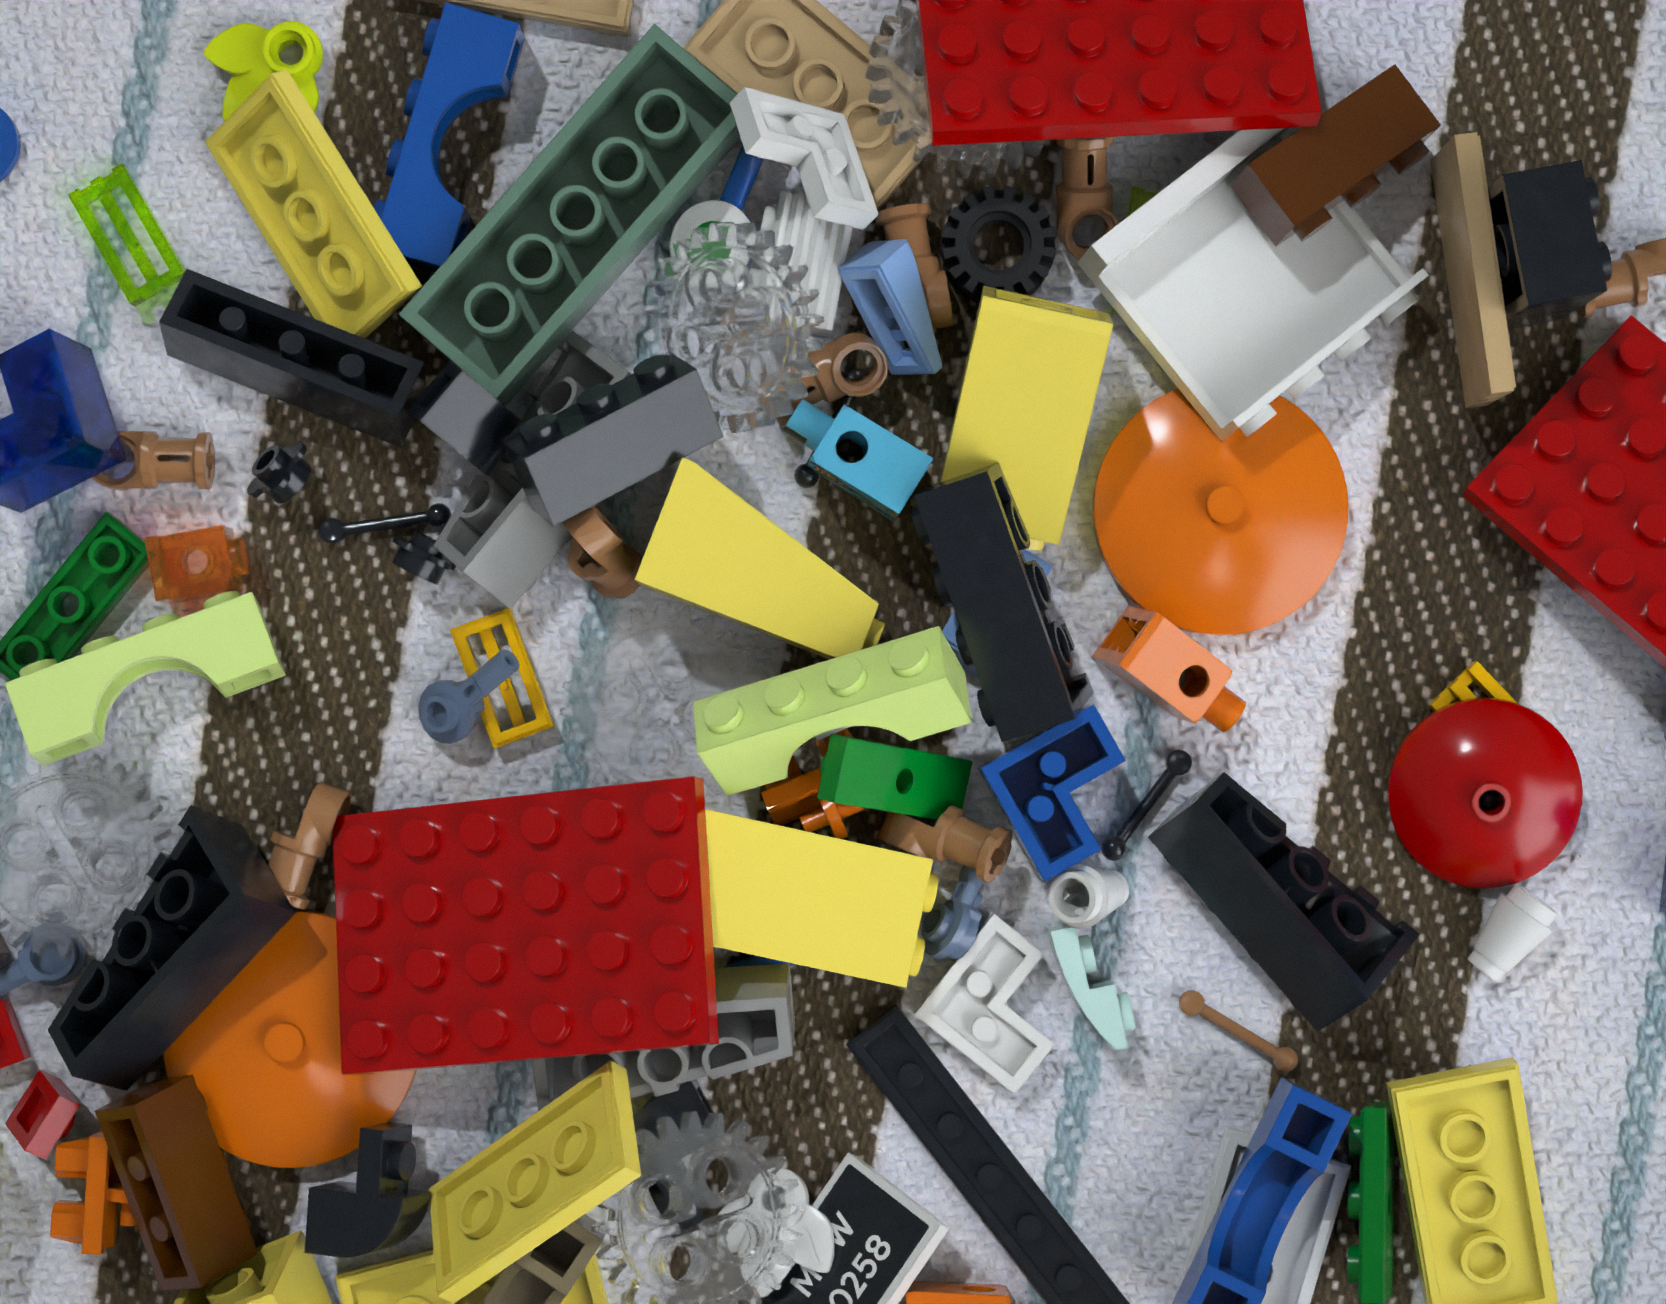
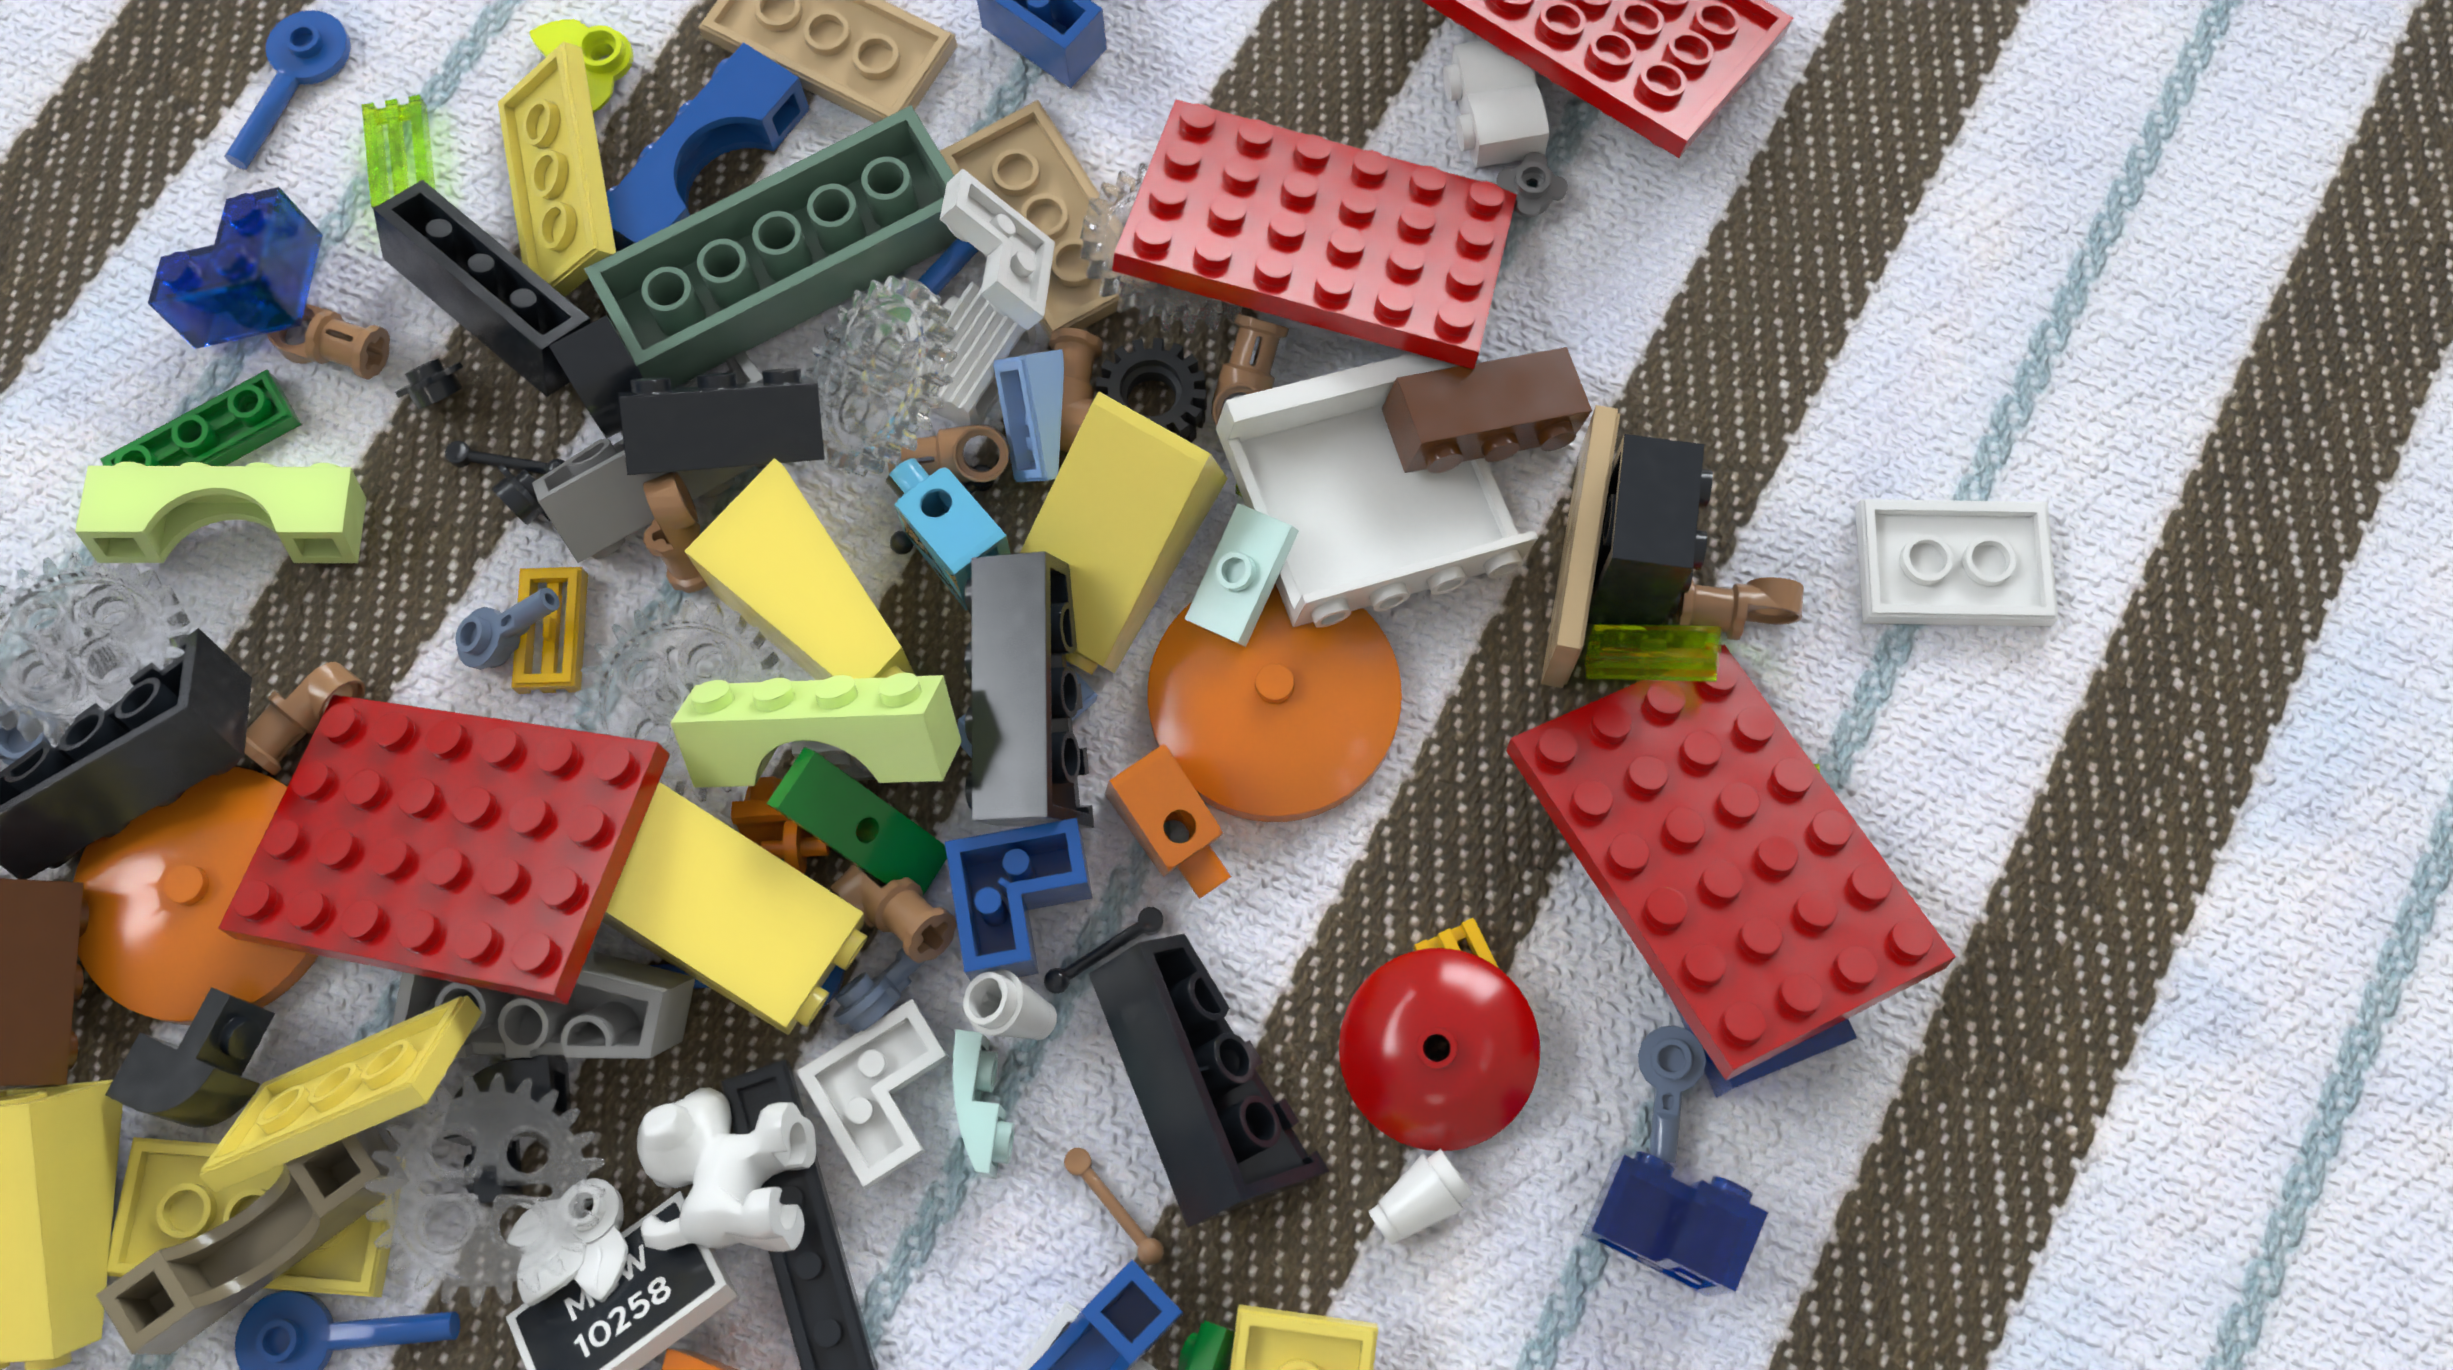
camera: 20 degrees right, 15 degrees down
(170, 571) = (319, 432): clear orange brick -> none
(850, 1112) = (726, 1206): none -> white animal
(1160, 410) = (1241, 574): none -> light aqua plate
(1572, 358) = (1654, 652): none -> clear neon green tile

